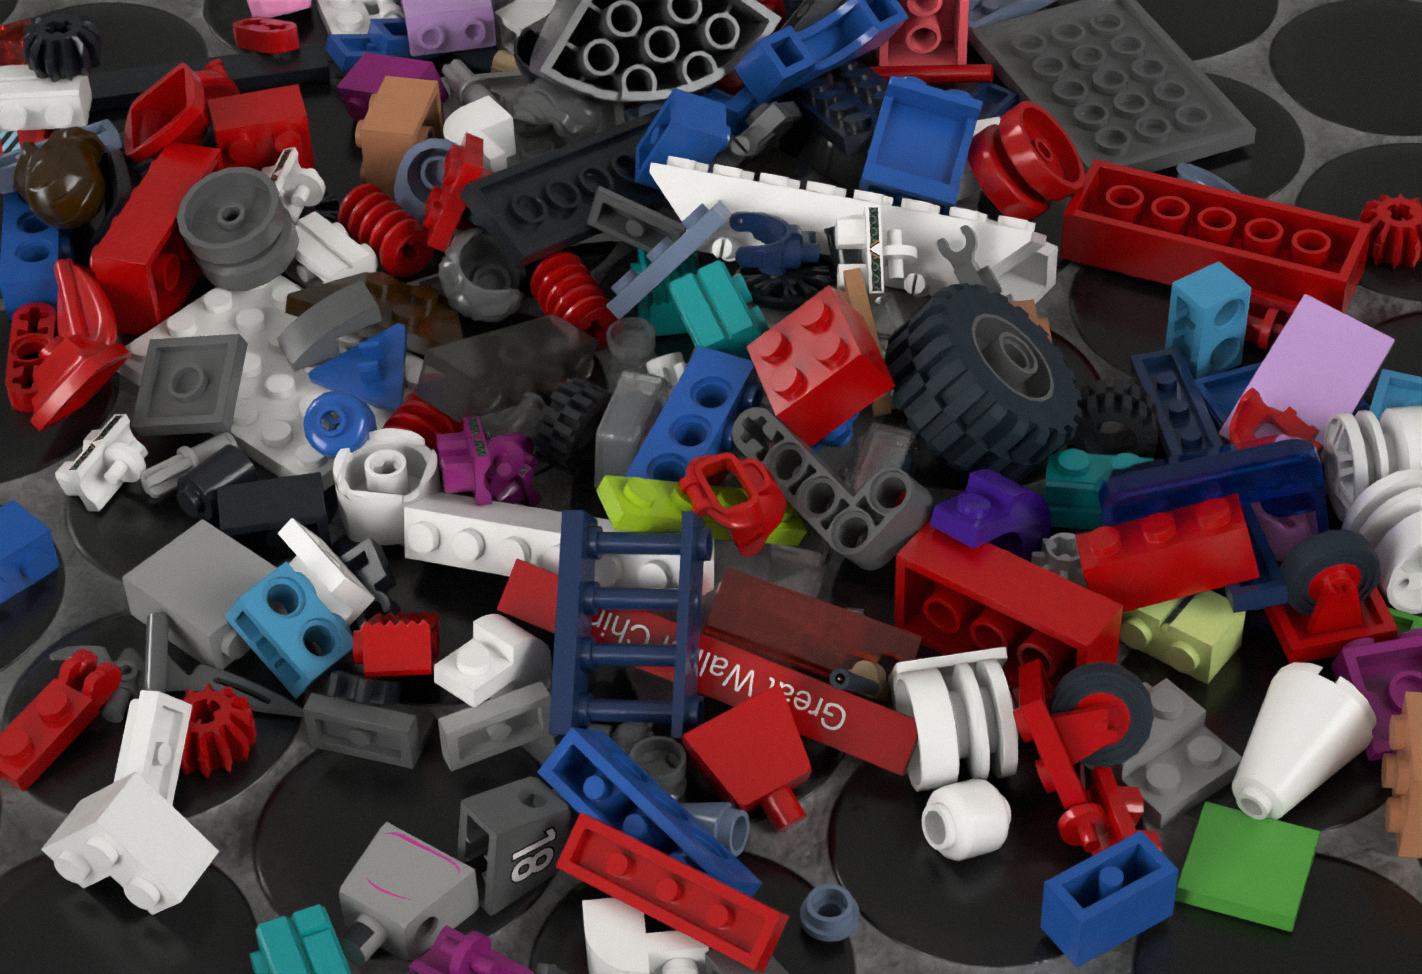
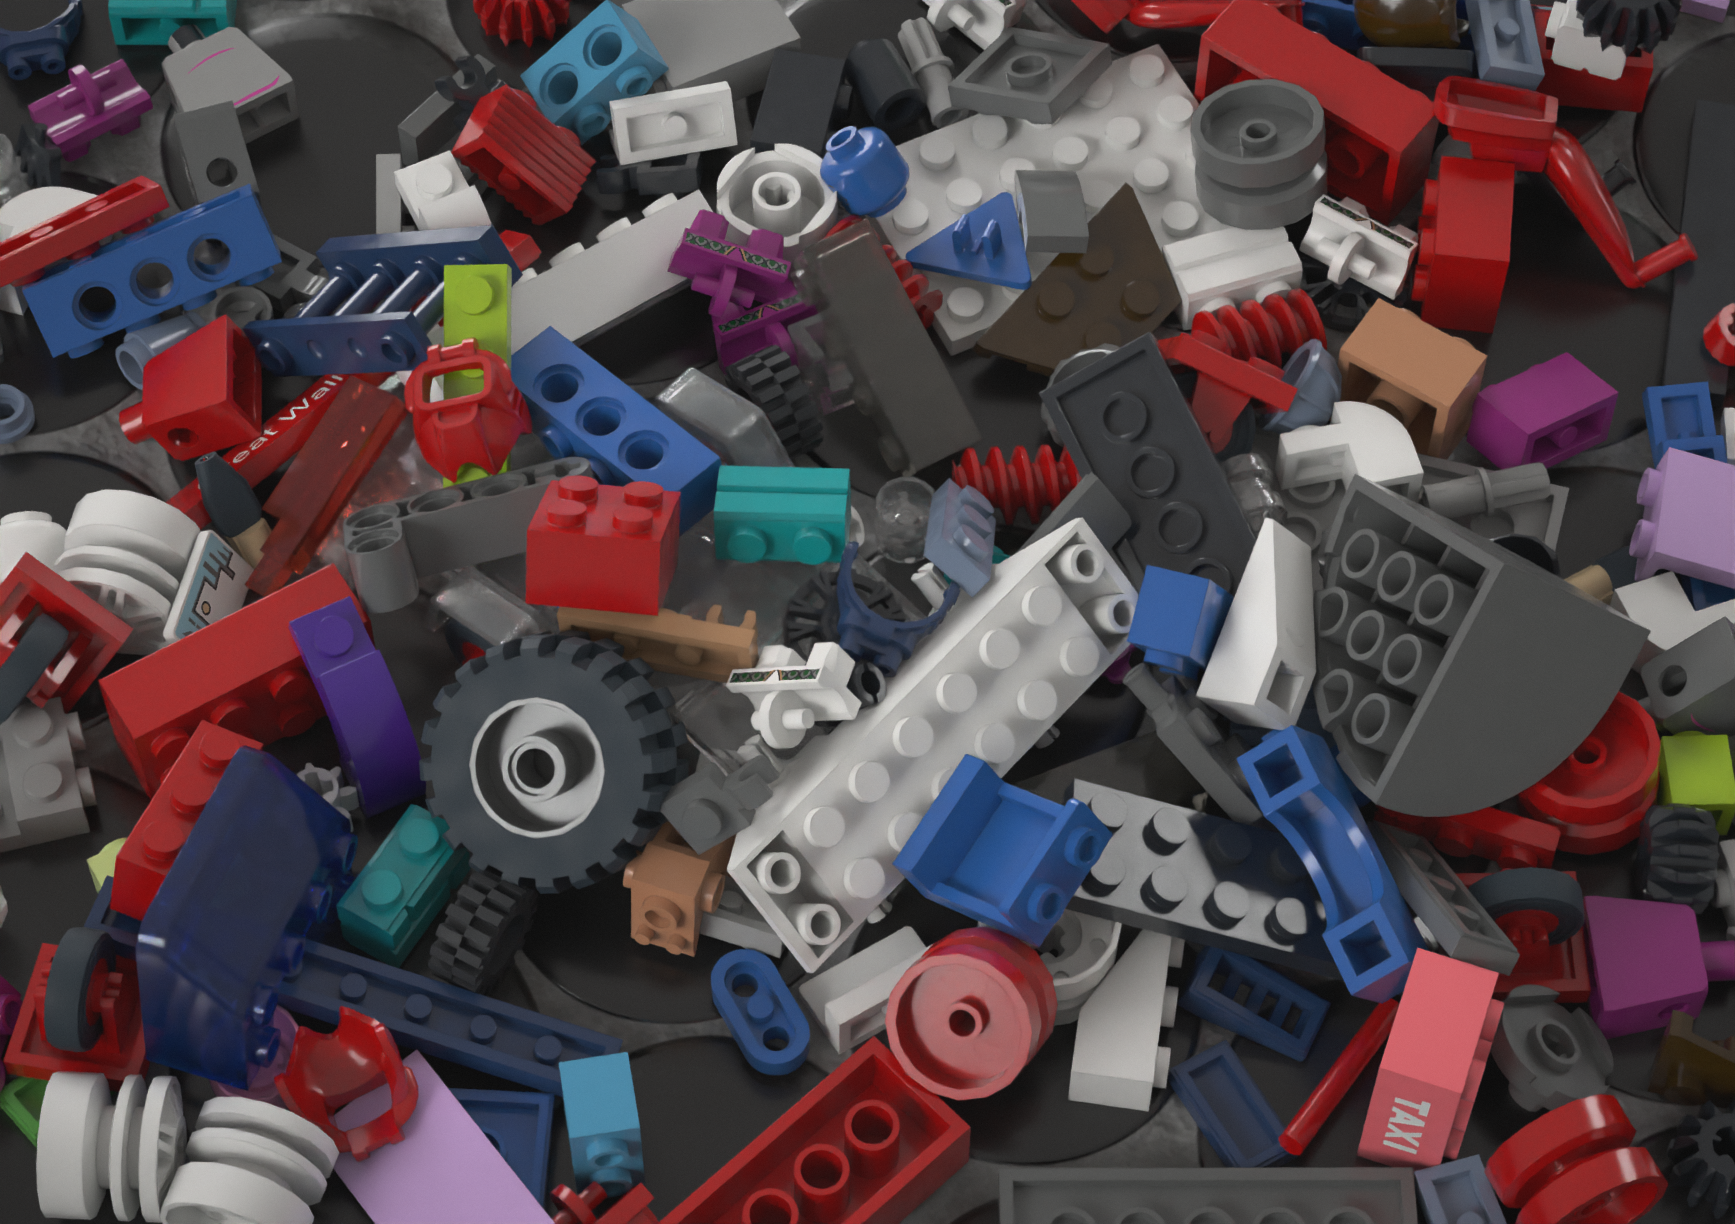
camera: 110 degrees right, 15 degrees up
(643, 101) = (1268, 638): none -> white slope
(1067, 303) = (764, 1015): none -> blue plate

